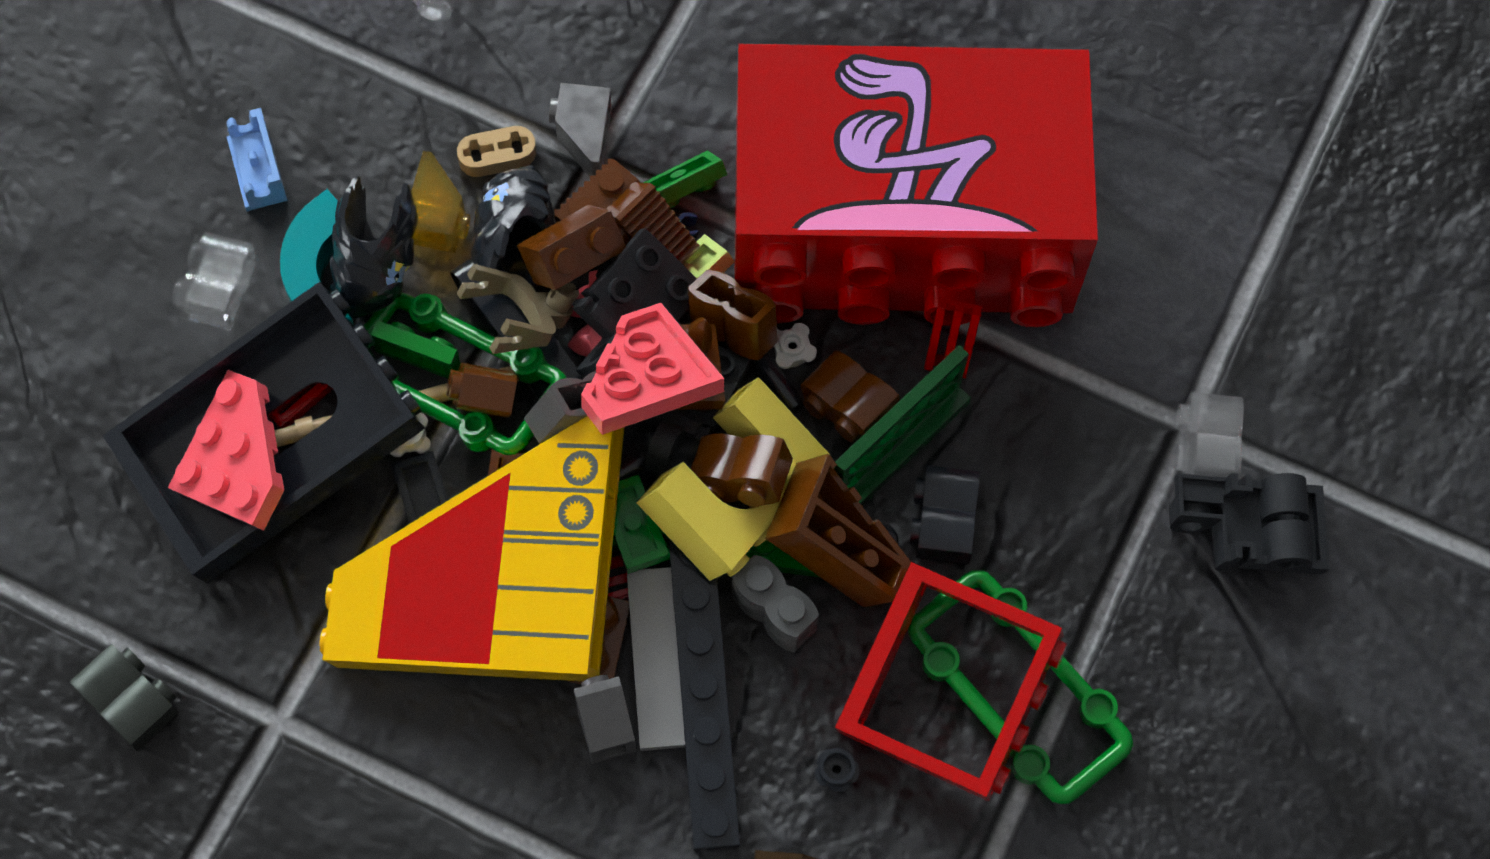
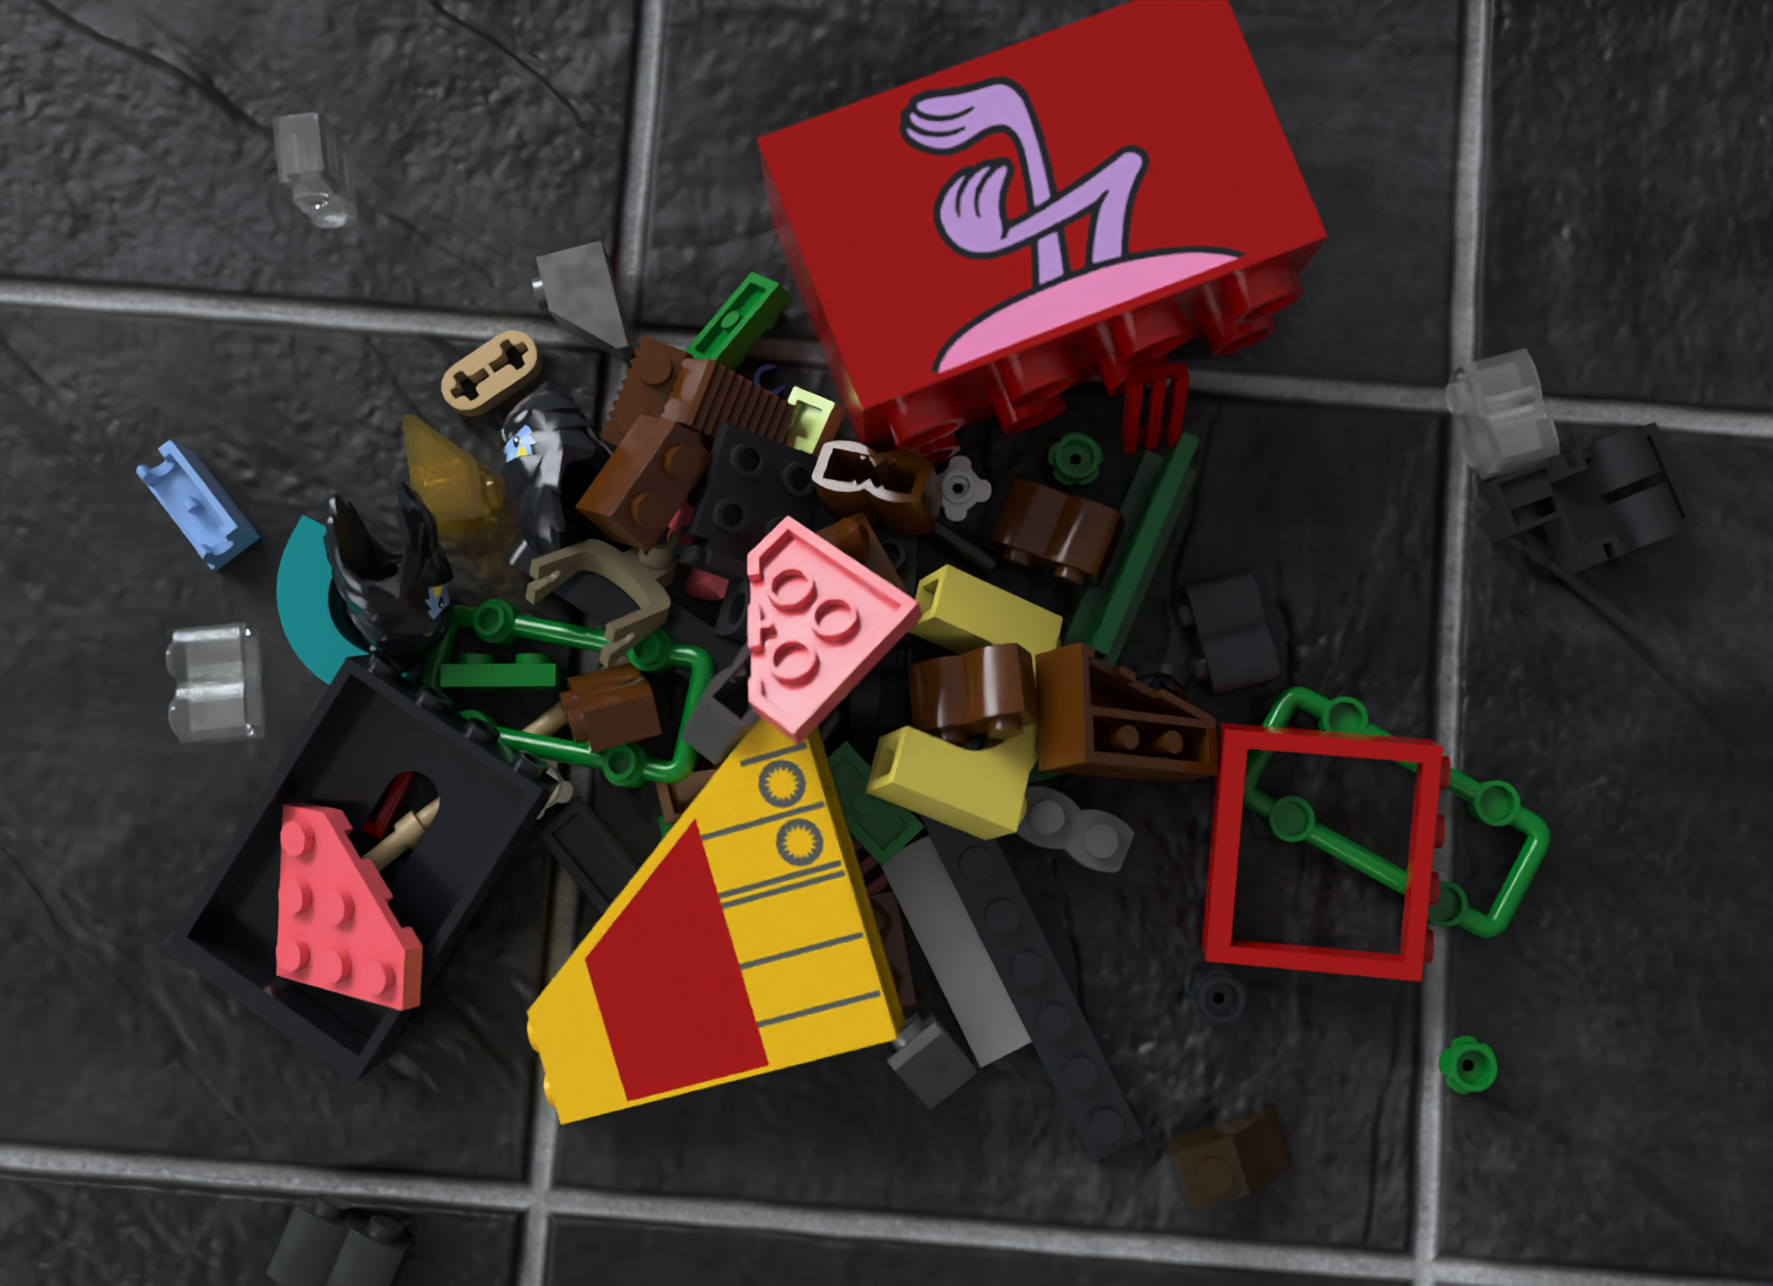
camera: 20 degrees left, 15 degrees up
(886, 347) = (1082, 446): none -> green plate

